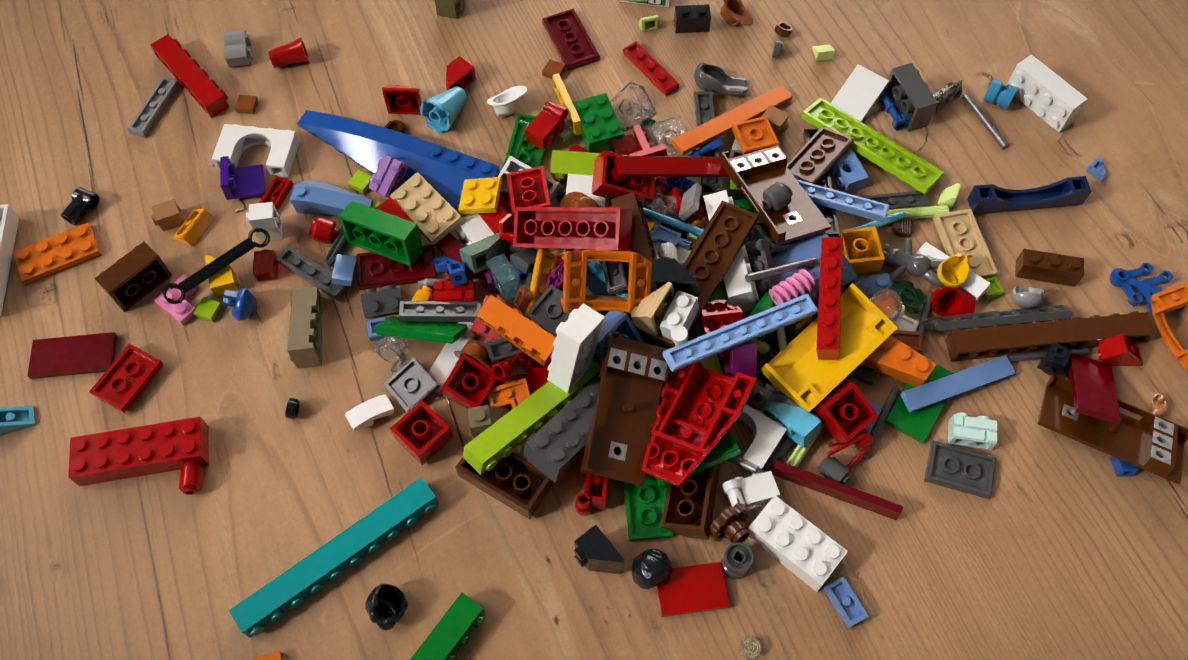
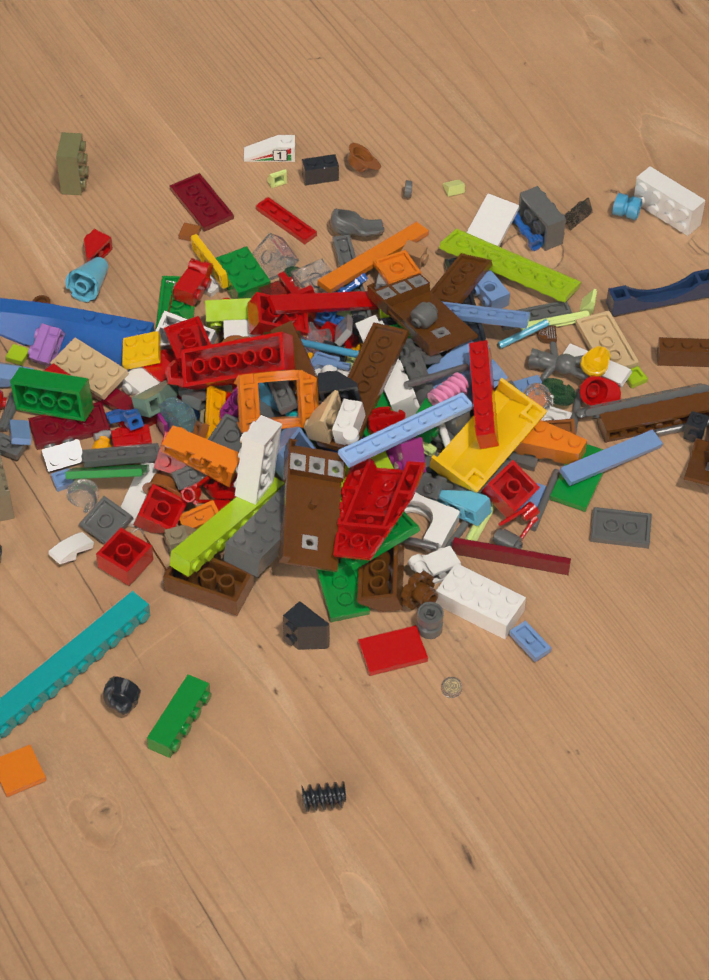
camera: 10 degrees left, 10 degrees down
(402, 99) = (46, 275): red slope -> none
(507, 101) = (149, 266): white piece -> none
(594, 495) = (293, 587): red hinge -> none
(651, 568) = (353, 635): black hair -> none
(783, 29) = (412, 170): reddish brown tile -> none
(863, 249) = (511, 356): light orange brick -> none
(972, 431) = (627, 494): light aqua brick -> none
(985, 121) = (616, 232): flat silver bar -> none
(1027, 296) = (667, 380): light grey hair -> none

